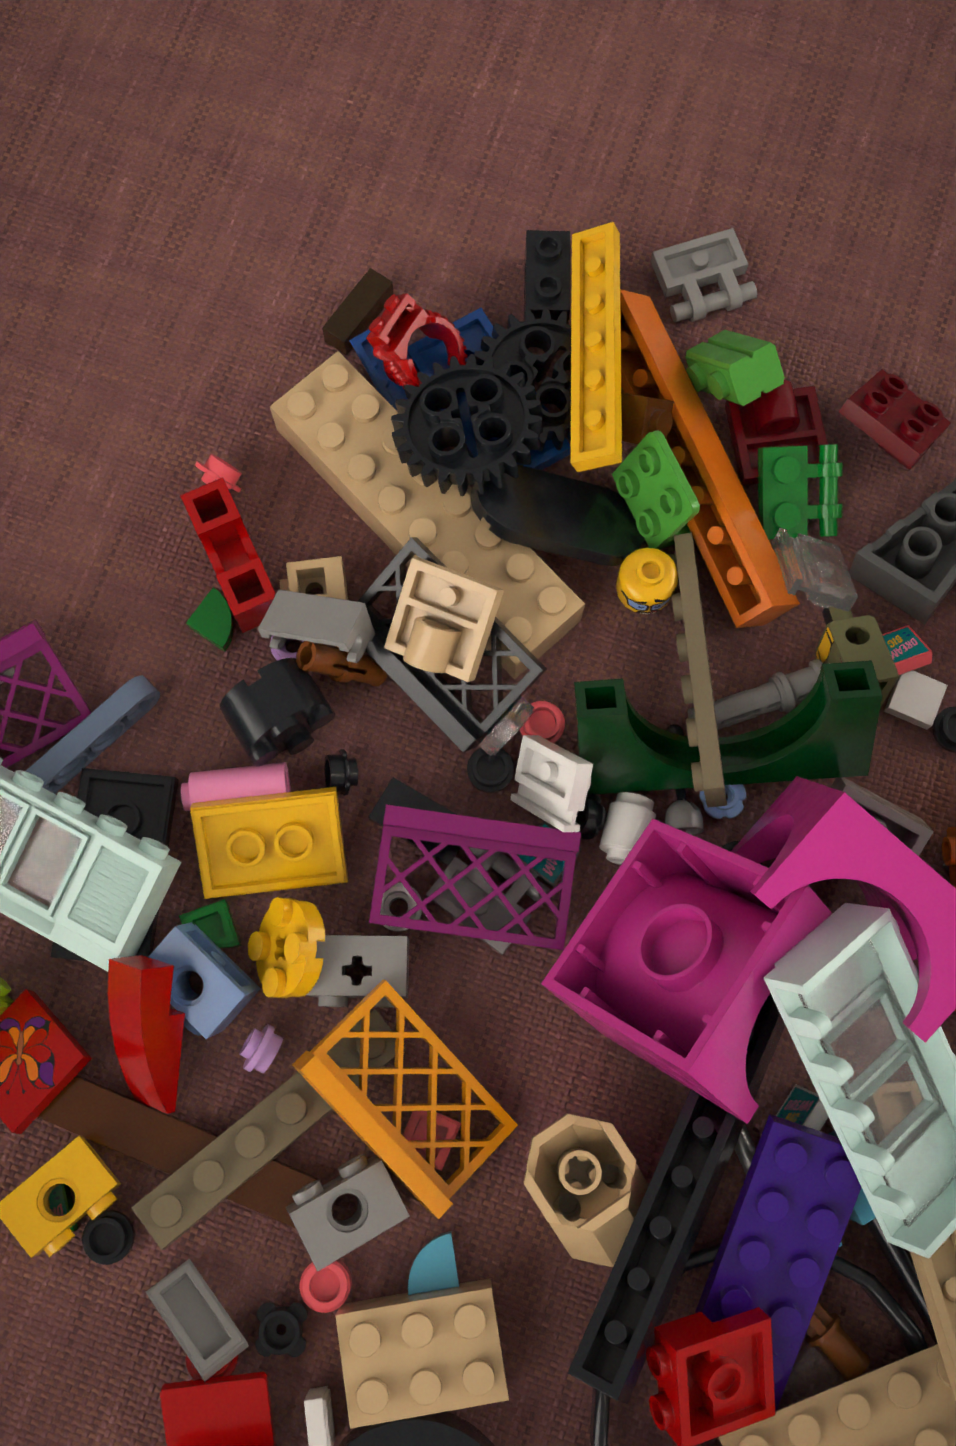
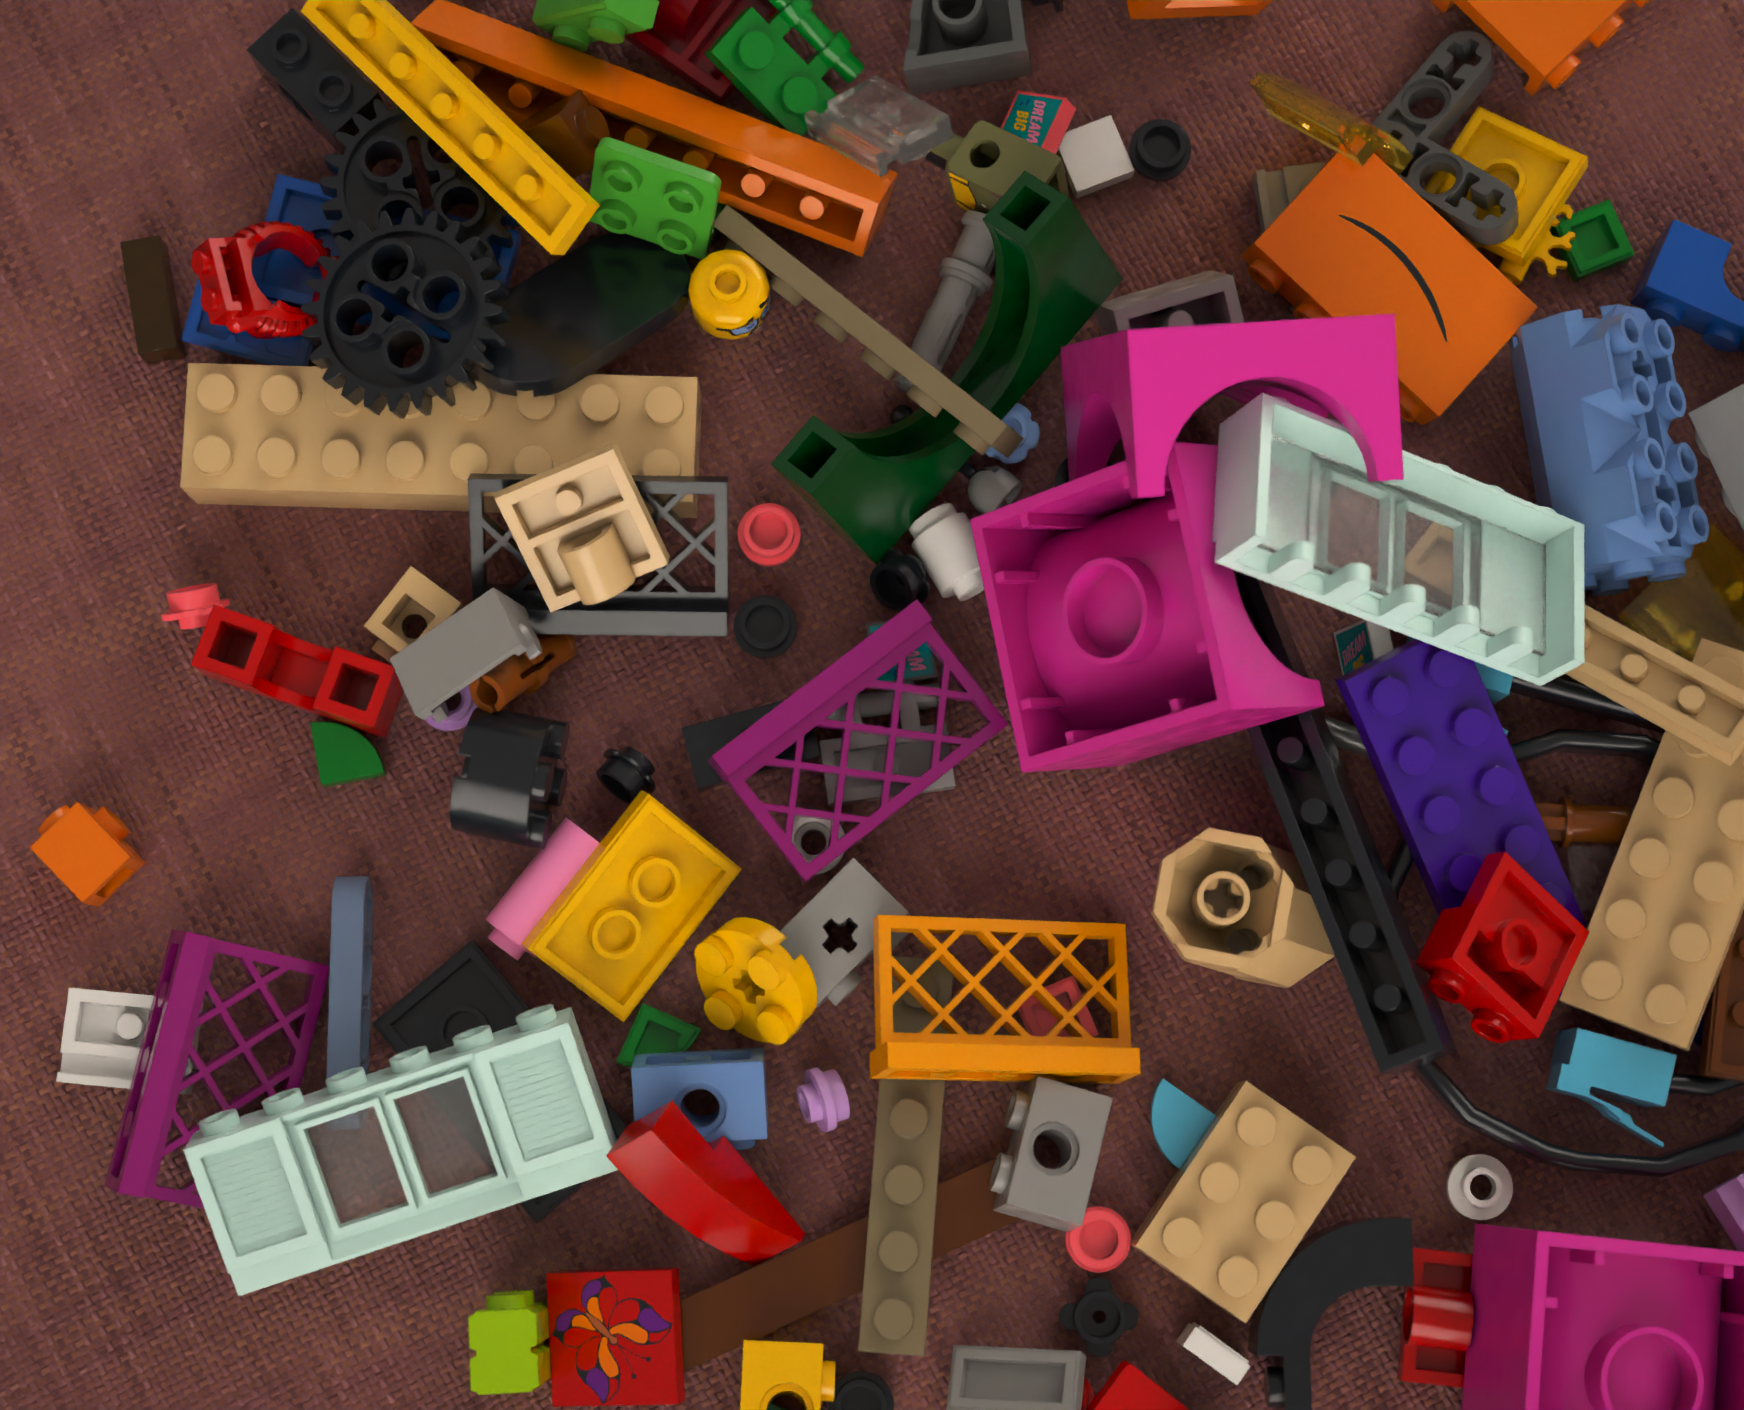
camera: 45 degrees left, 5 degrees up
(39, 542) = (87, 851): none -> orange brick
(507, 727) = (744, 570): clear tile -> none
(551, 782) = (840, 580): white plate -> none

